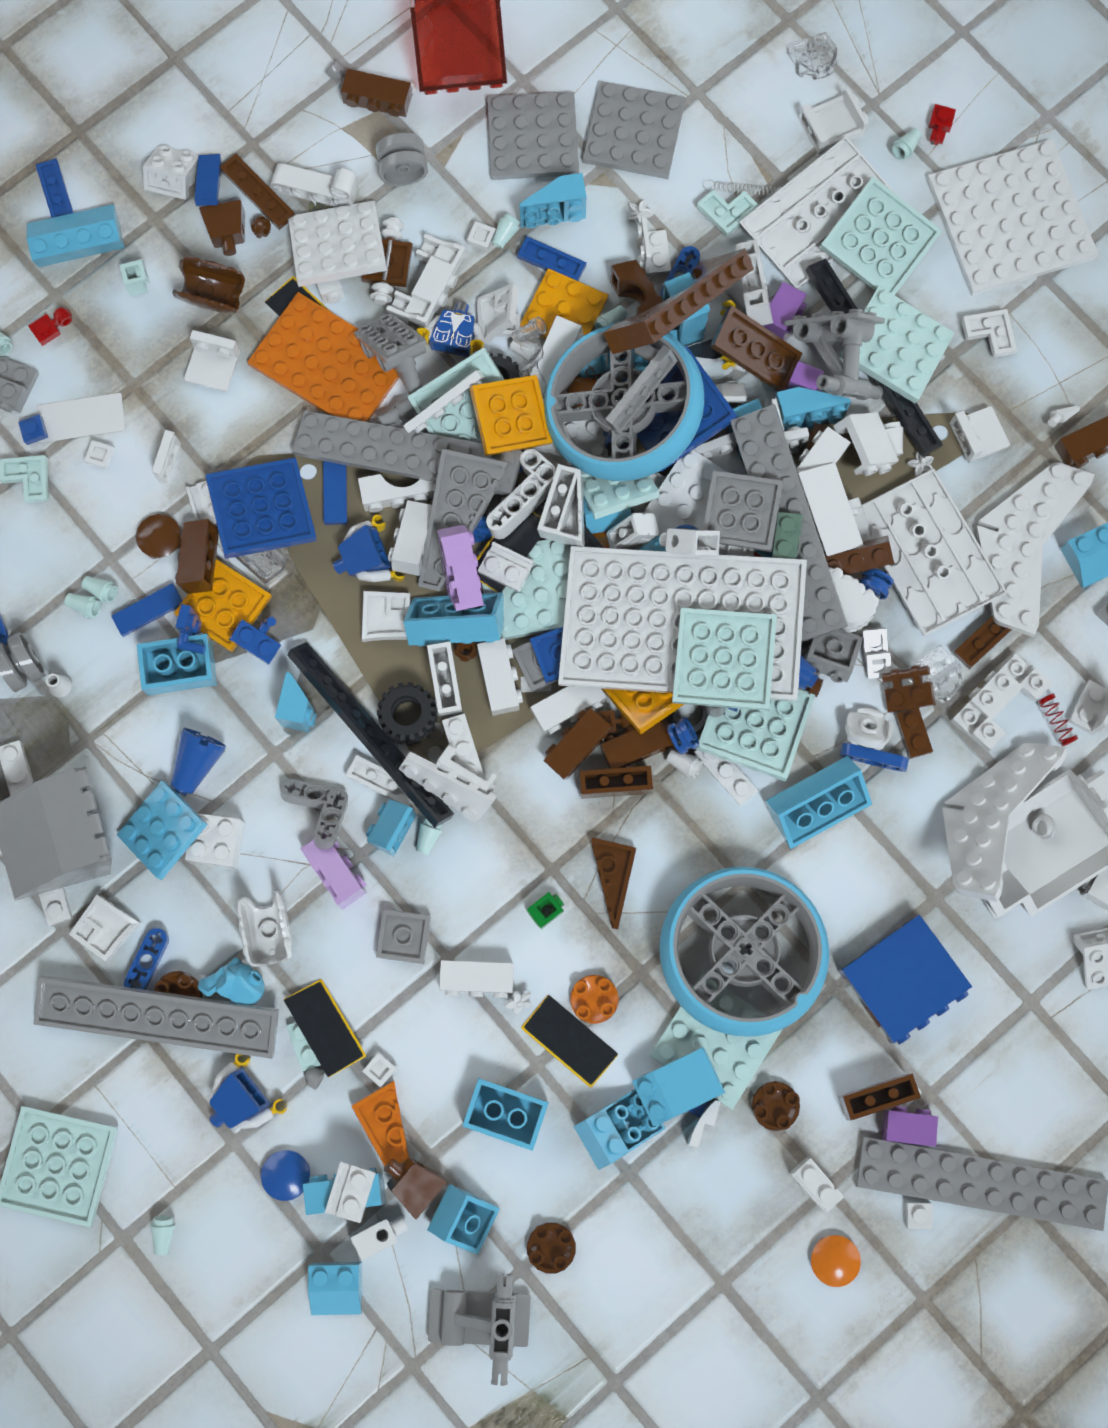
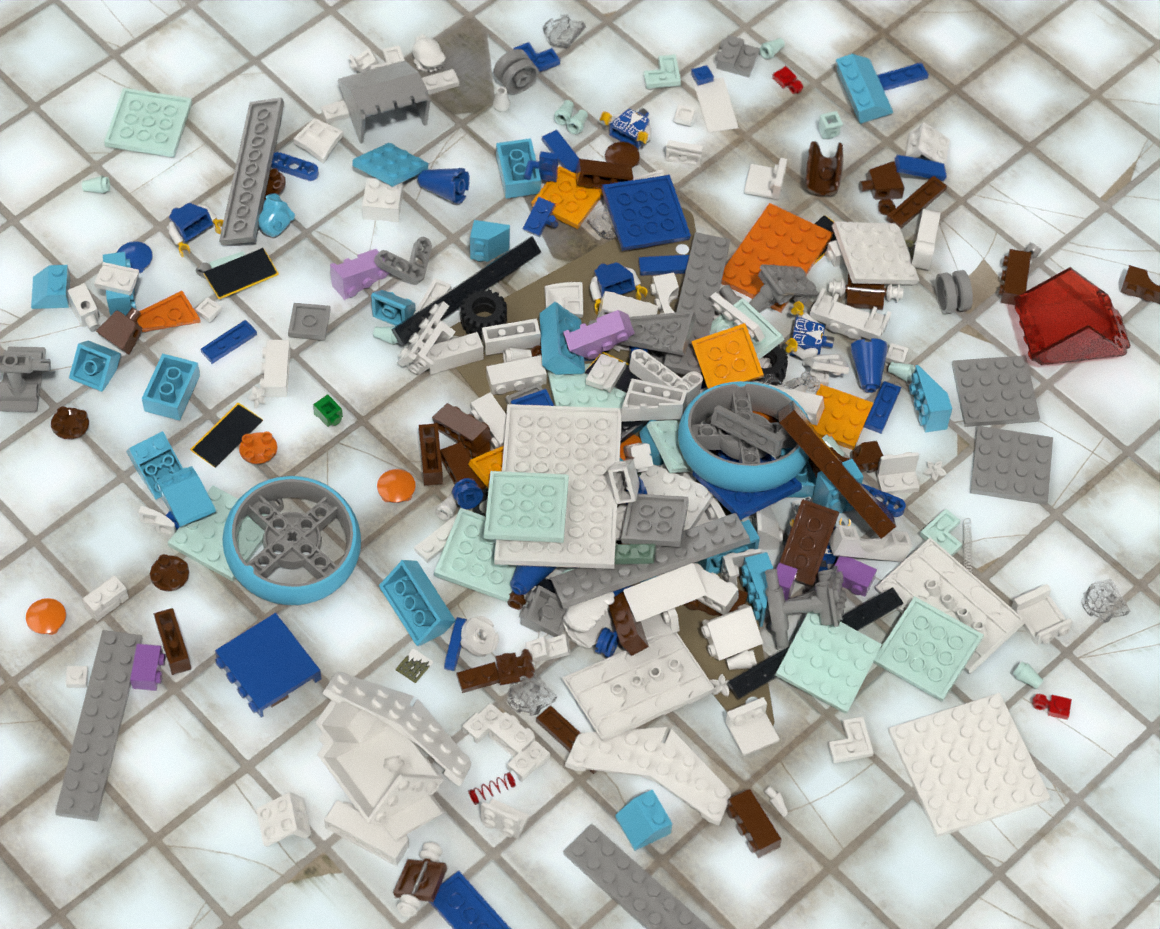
camera: 85 degrees right, 20 degrees down
(117, 520) = (629, 126): none -> torso
(264, 931) = (313, 227): white animal -> none
(428, 1042) = (228, 341): none -> blue tile
(468, 677) = (513, 354): none -> white cone
(498, 265) = (869, 362): none -> blue cone
(614, 869) = (361, 459): reddish brown wing -> none
(652, 826) = (396, 486): none -> orange dish
(896, 807) = (414, 665): none -> sticker

